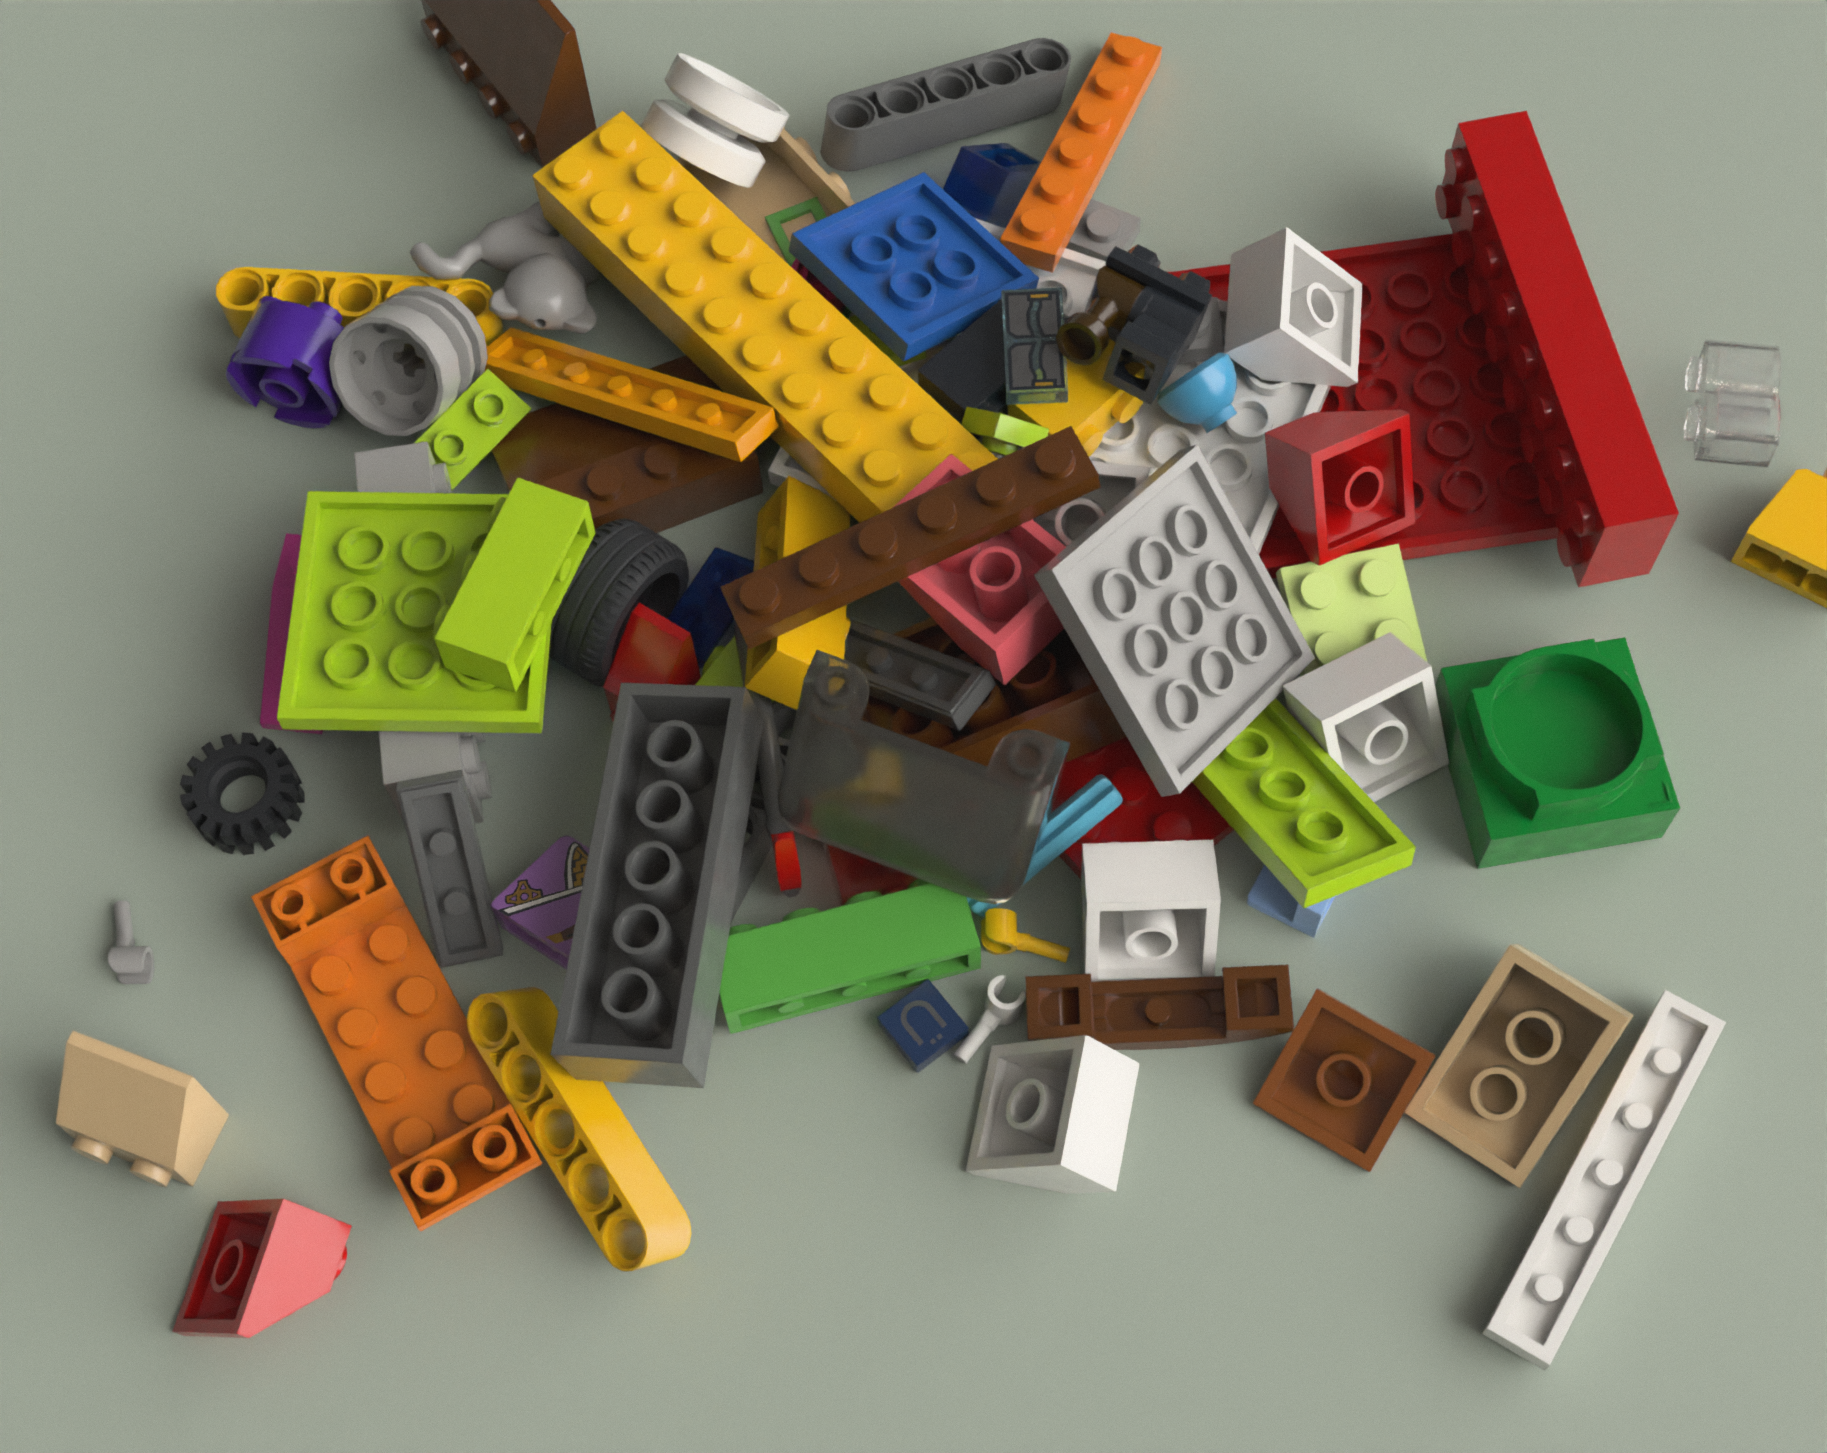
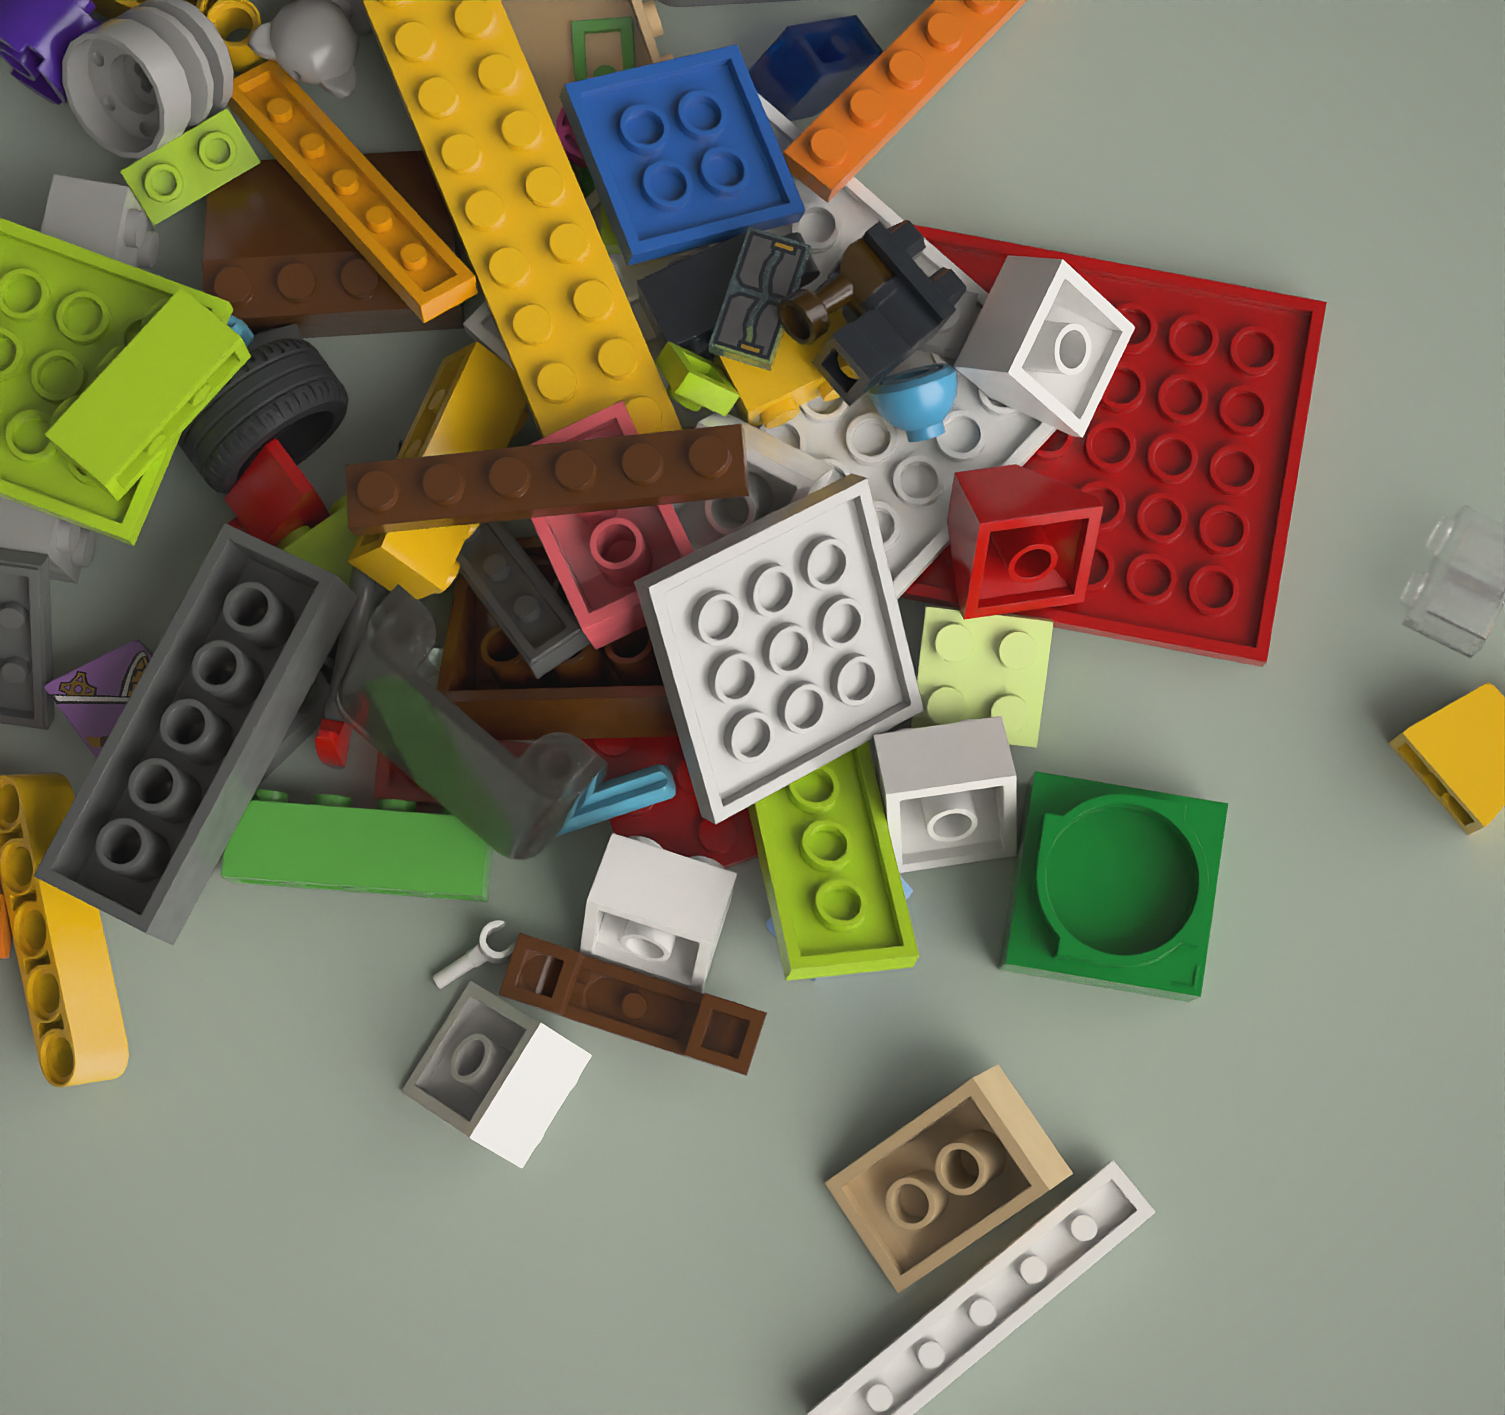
camera: 15 degrees right, 15 degrees up
(703, 605) = (365, 435): clear blue hinge -> none
(923, 1025) = (412, 939): dark blue tile -> none
(1001, 937) = (520, 877): yellow hand -> none
(1103, 229) = (912, 161): light grey plate -> none
(1344, 1079) = (777, 1136): dark orange slope -> none
(1554, 352) = (1291, 468): red brick -> none

